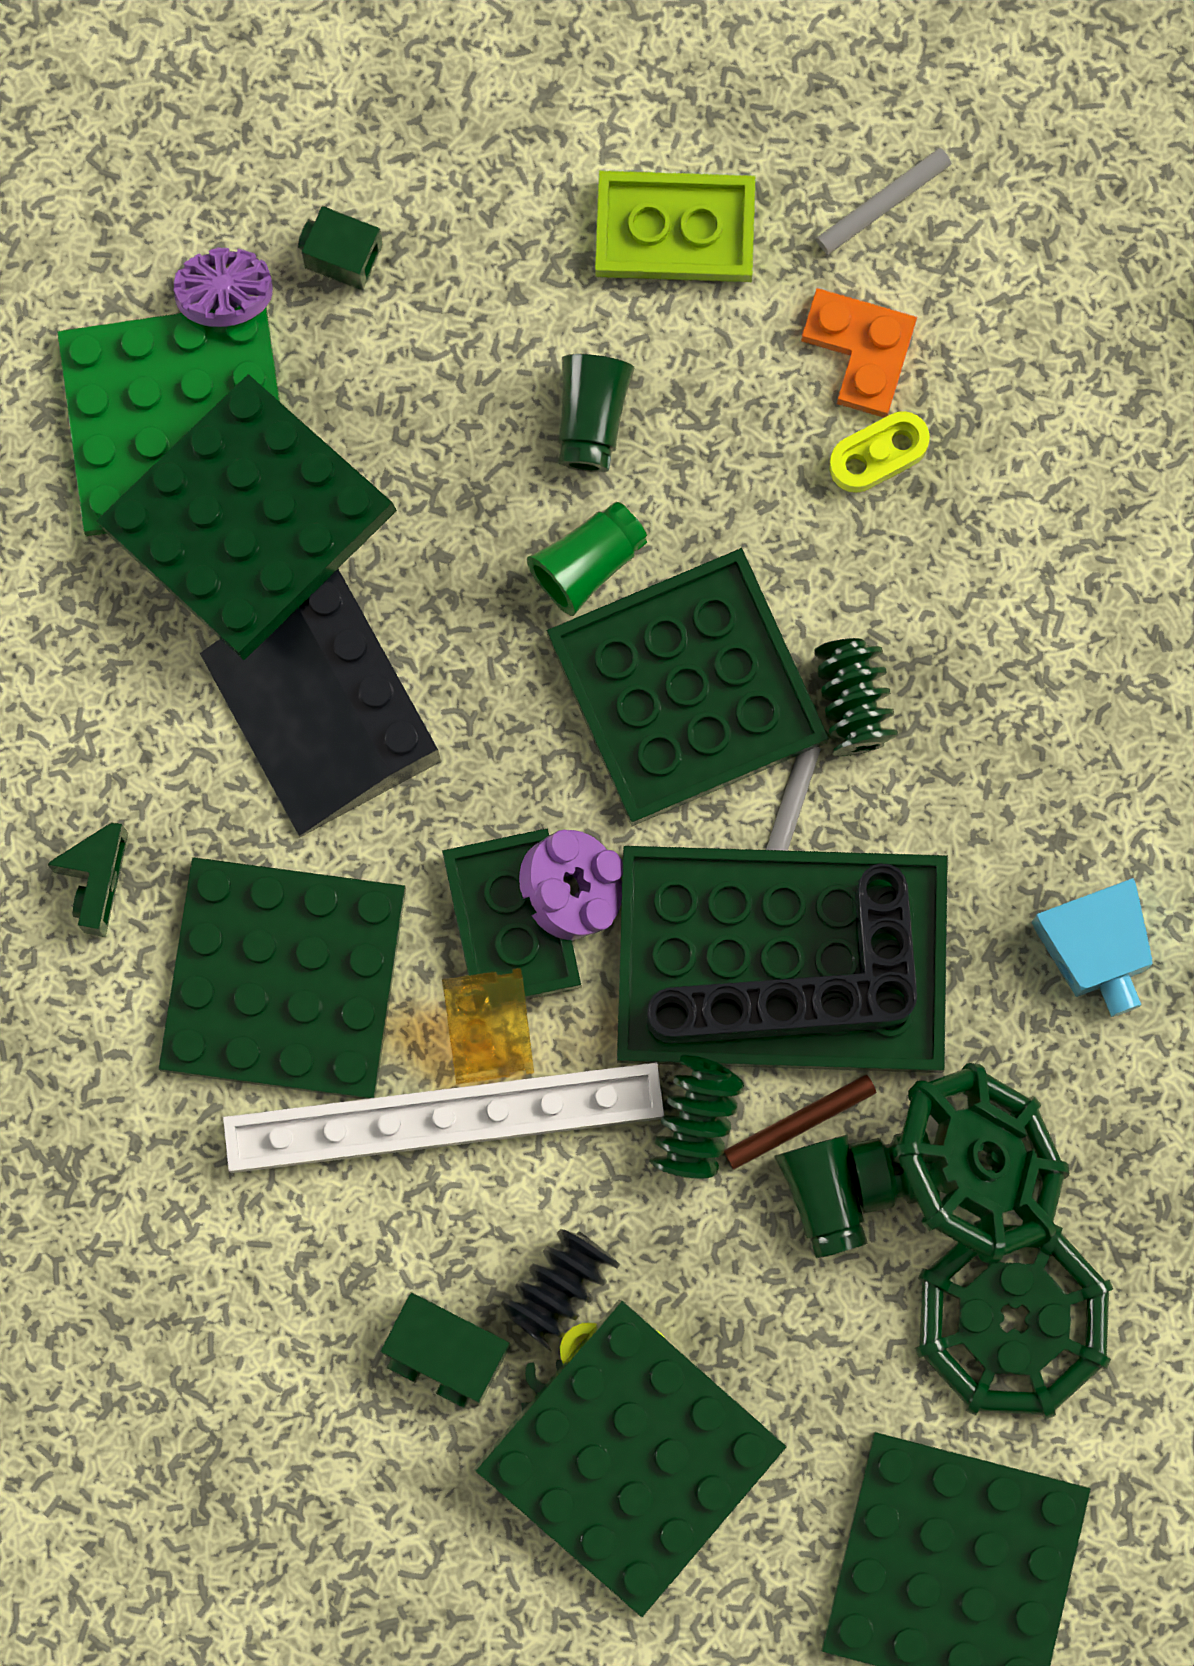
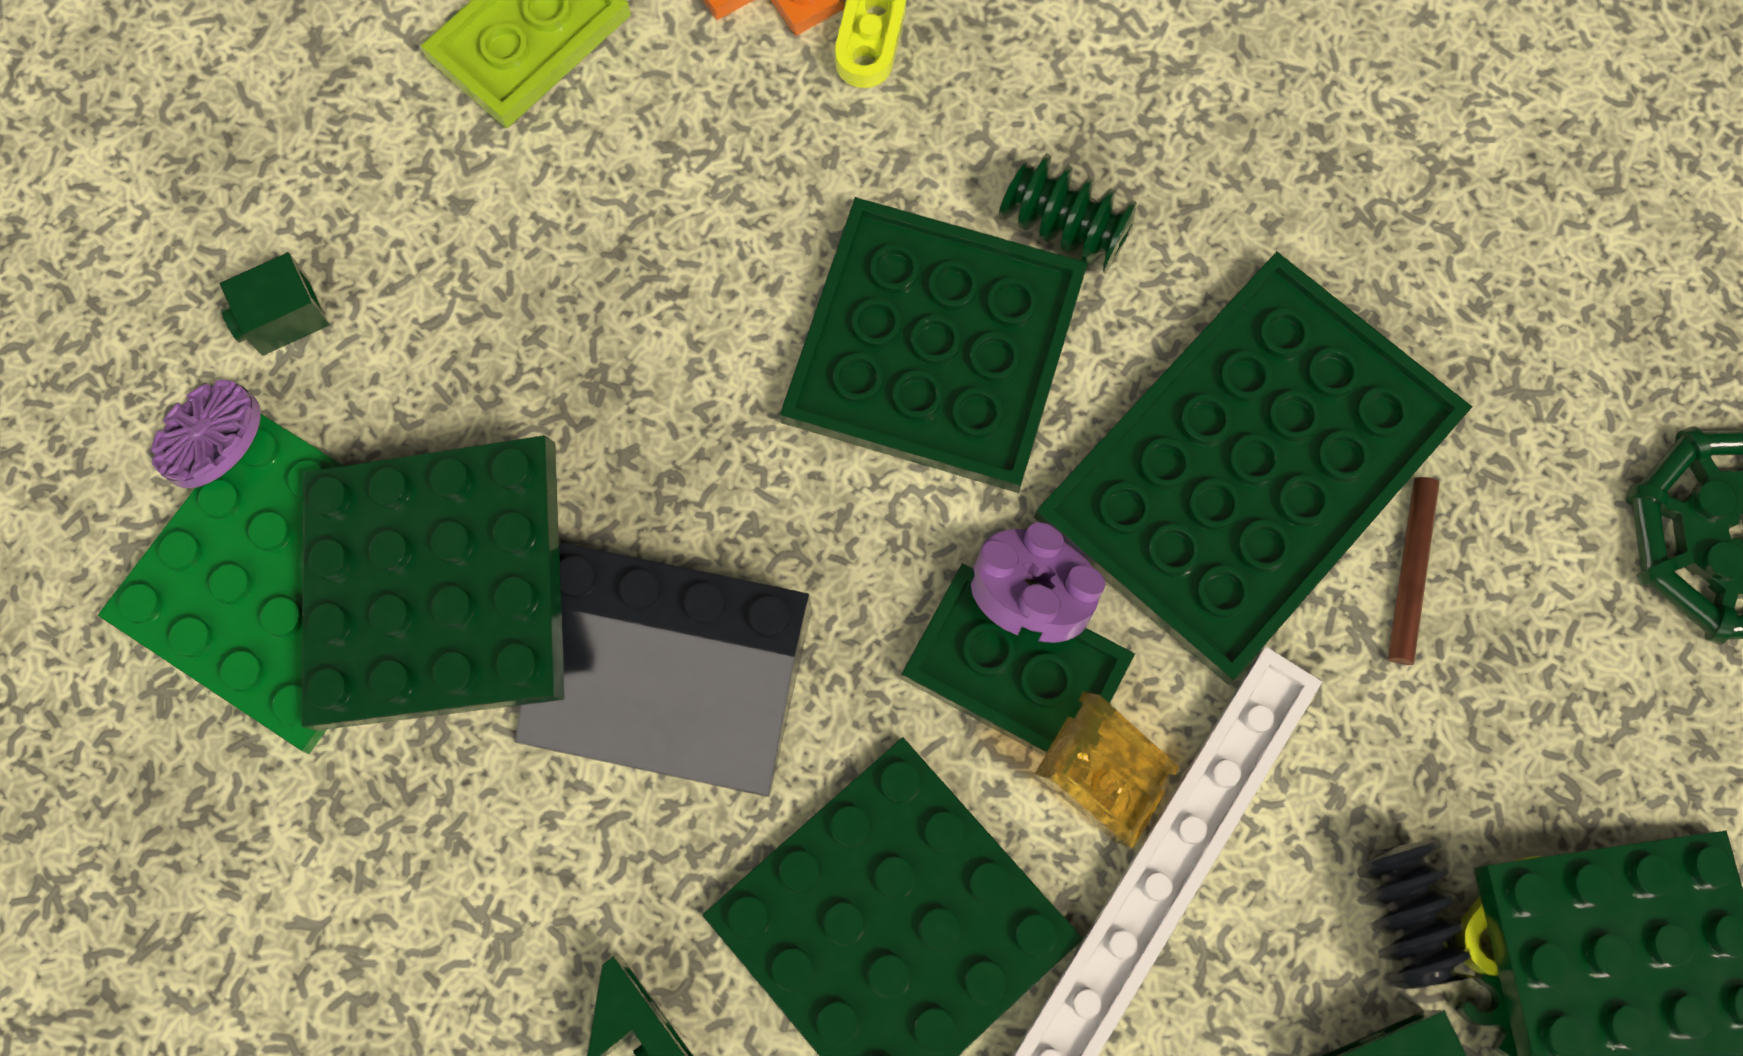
camera: 50 degrees left, 5 degrees down
(587, 557) = (745, 329): green plant -> none
(591, 409) = (618, 216): dark green plant -> none
(700, 1119) = (1361, 652): dark green piece -> none
(793, 800) = (1111, 344): light grey bar -> none
(807, 992) = (1324, 461): black beam -> none
(825, 1195) = (1509, 598): dark green plant -> none
(874, 1174) = (1536, 521): dark green wheel -> none
(962, 1176) = (1605, 434): dark green plate -> none
(1099, 944) = (1457, 194): medium azure torso -> none

